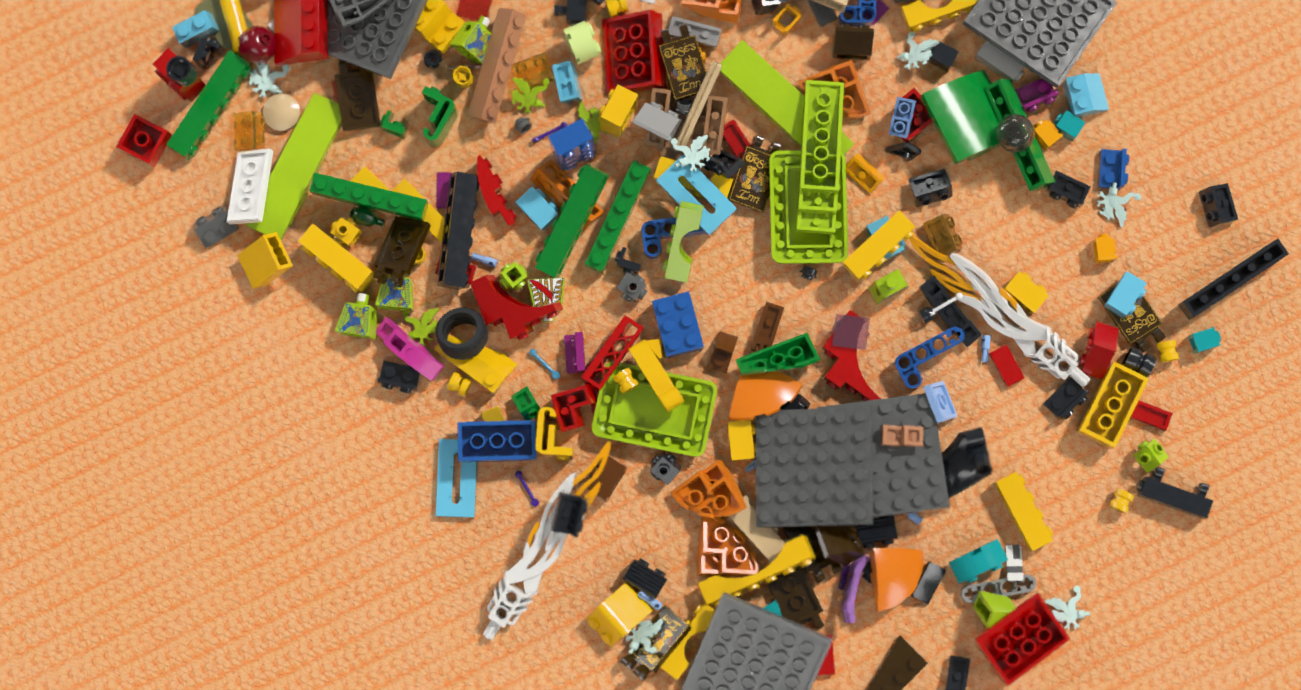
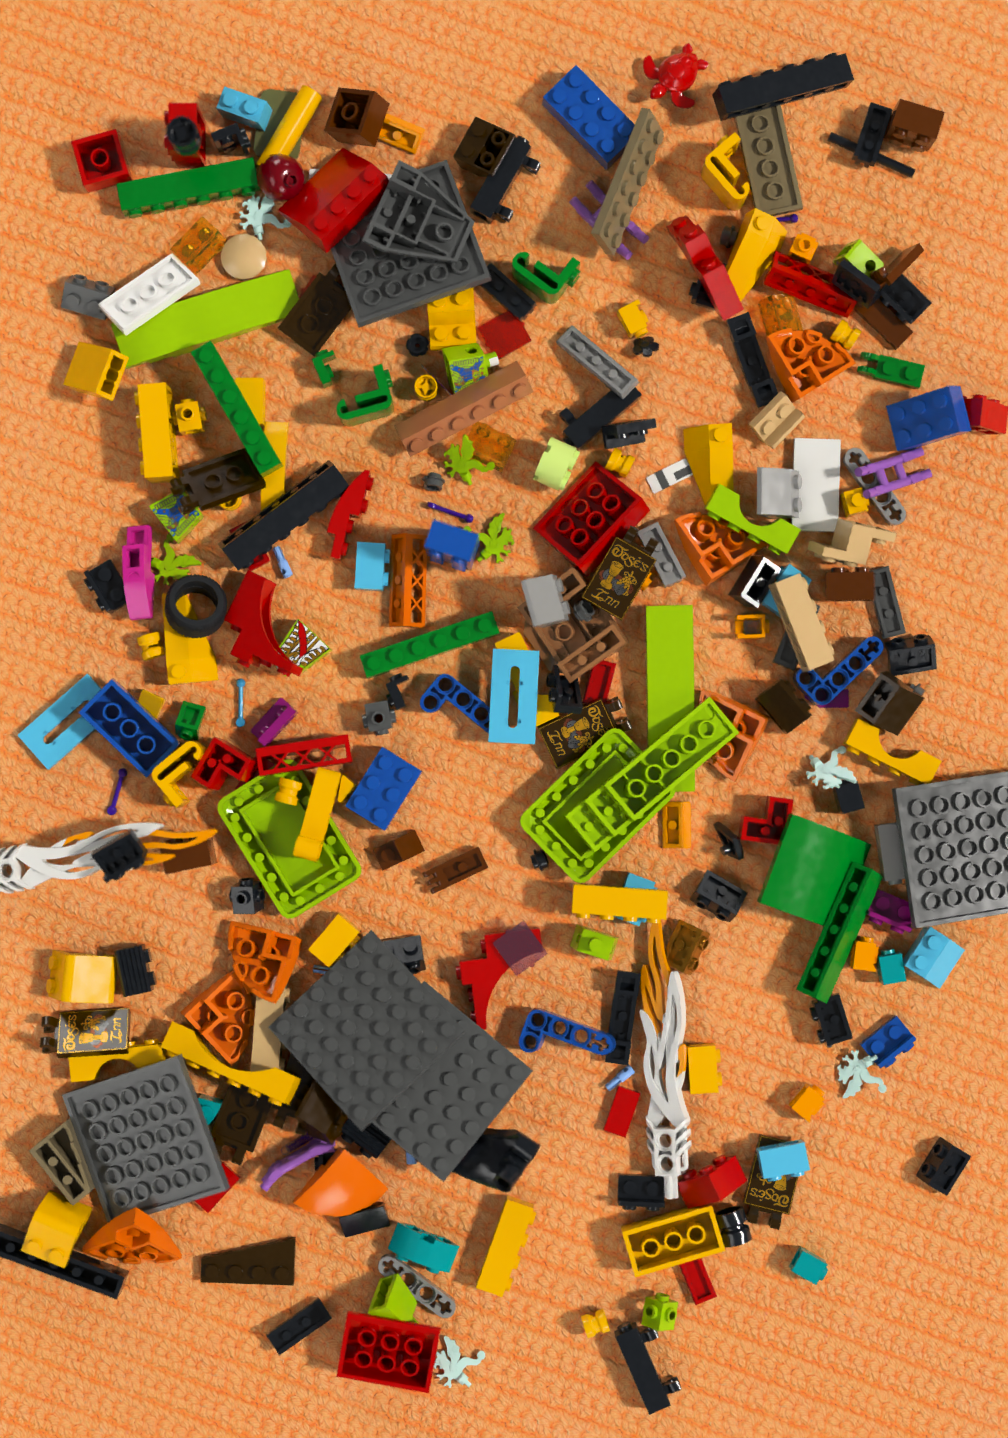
camera: 40 degrees right, 5 degrees up
(358, 319) = (124, 502): lime torso -> none
(365, 216) = (219, 422): dark green plant -> none
(442, 189) = (314, 461): magenta sticker -> none
(513, 270) = (299, 603): lime brick -> none
(567, 82) = (508, 485): medium azure hinge -> none
(571, 221) = (386, 608): green brick -> none
(618, 111) = (523, 556): yellow brick -> none
(641, 636) = (82, 1013): light aqua piece -> none
(650, 601) = (121, 1000): light blue pin -> none
(688, 220) = (481, 713): lime arch -> none
(692, 156) = (543, 661): light aqua piece -> none
(698, 103) = (594, 622): tan axle -> none
(762, 394) = (392, 919): orange brick -> none
(782, 356) = (444, 911): green wedge -> none
(902, 117) = (755, 814): medium blue slope -> none
(902, 436) = (466, 1081): nougat slope -> none
(928, 313) = (602, 1000): hinge -> none
(940, 401) = (532, 1084): light blue tile -> none
(1014, 563) = (452, 1280): white sticker -> none
(1015, 133) = (835, 929): clear smoke cylinder -> none
(1167, 351) = (768, 1242): yellow wheel -> none
(1233, 279) = (887, 1241): black brick -> none

